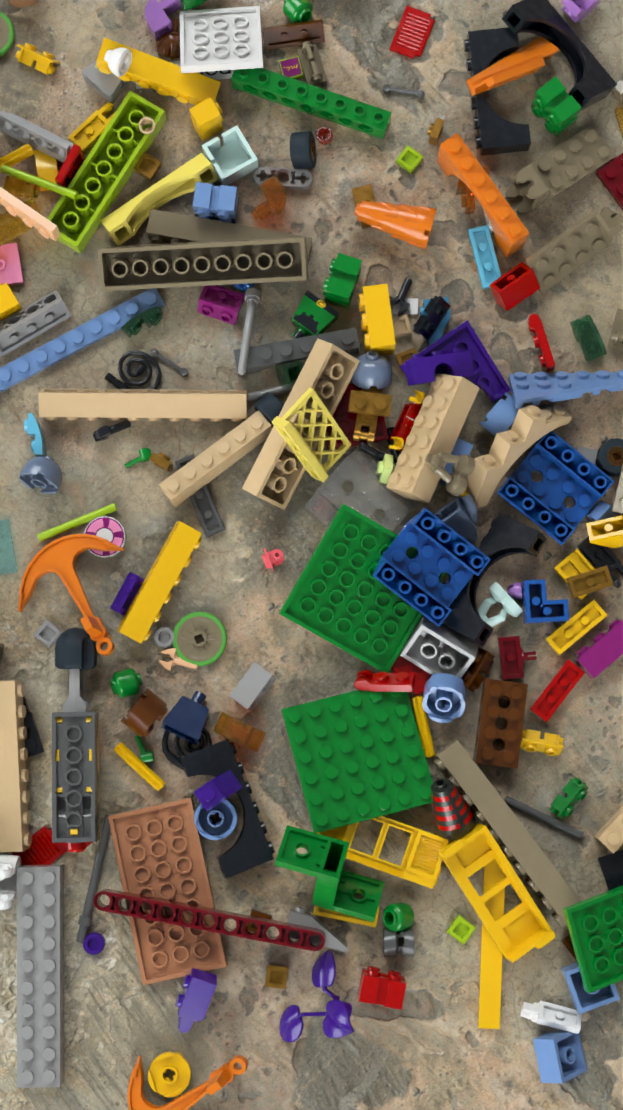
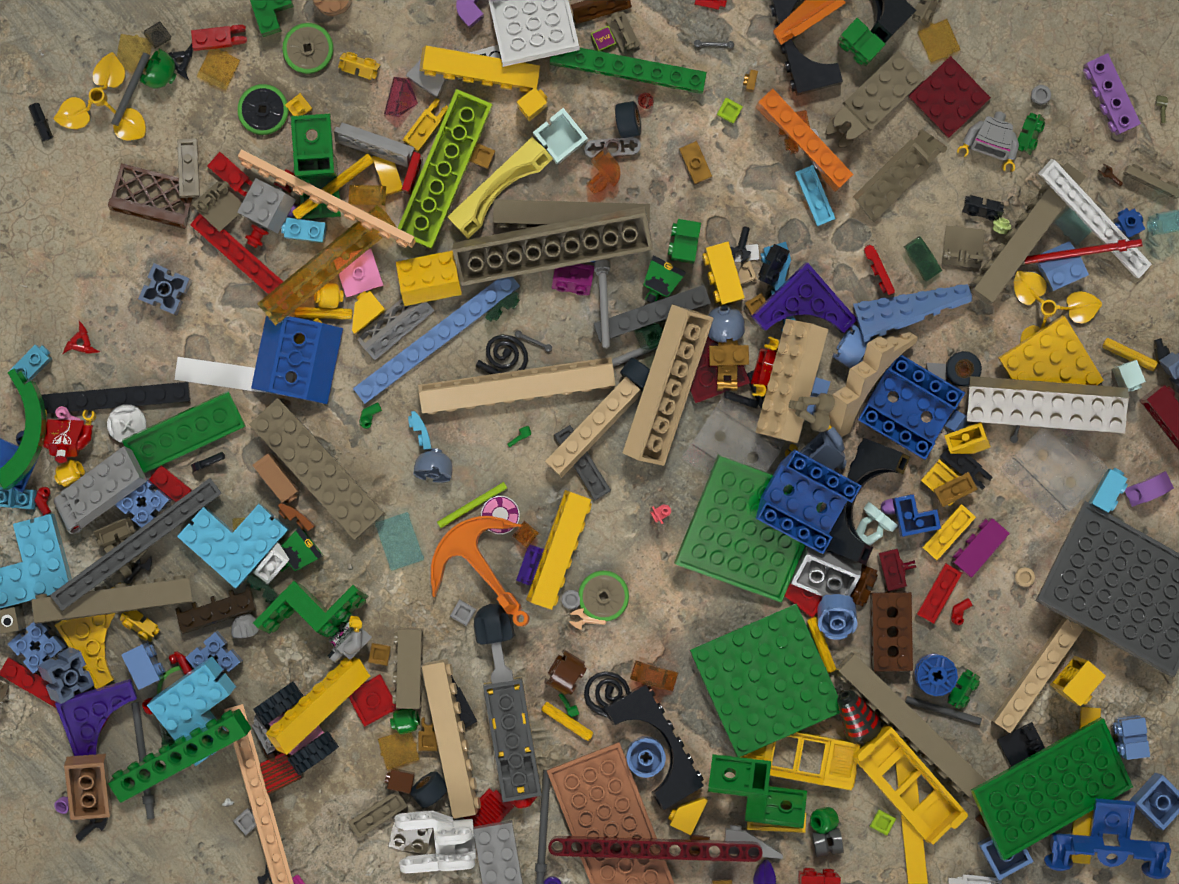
camera: 10 degrees left, 5 degrees up
(39, 181) = (385, 191): lime bar -> none
(68, 278) = (428, 278): none -> yellow brick
(74, 96) = (400, 97): none -> clear pink slope
(105, 431) = (490, 414): black bar -> none
(118, 60) = (444, 67): white brick -> none
(125, 683) = (542, 647): green head -> none
(127, 560) = (525, 534): none -> clear orange plate
(146, 121) = (482, 126): tan hinge -> none
(161, 460) = (542, 436): pearl gold plate -> none
(169, 43) = (484, 31): reddish brown piece -> none
(187, 718) = (605, 671): dark blue torso -> none
(216, 202) = (554, 184): medium blue brick -> none
(217, 790) = (644, 732): dark purple slope -> none
(251, 888) = (687, 815): none -> yellow slope
(253, 687) = (660, 632): light grey hinge -> none
(298, 444) = (681, 416): light yellow fence -> none
(385, 468) = (752, 413): yellowish green plate -> none
(385, 681) = (780, 609): red hinge -> none
(401, 221) = (730, 175): orange cone -> none
(421, 368) = (772, 317): dark purple arch -> none
(514, 286) = (846, 221): red brick -> none
(529, 781) = (925, 680): none -> blue wheel
(550, 745) = (941, 642): yellow hinge -> none
(574, 713) = (958, 611): none -> red arm

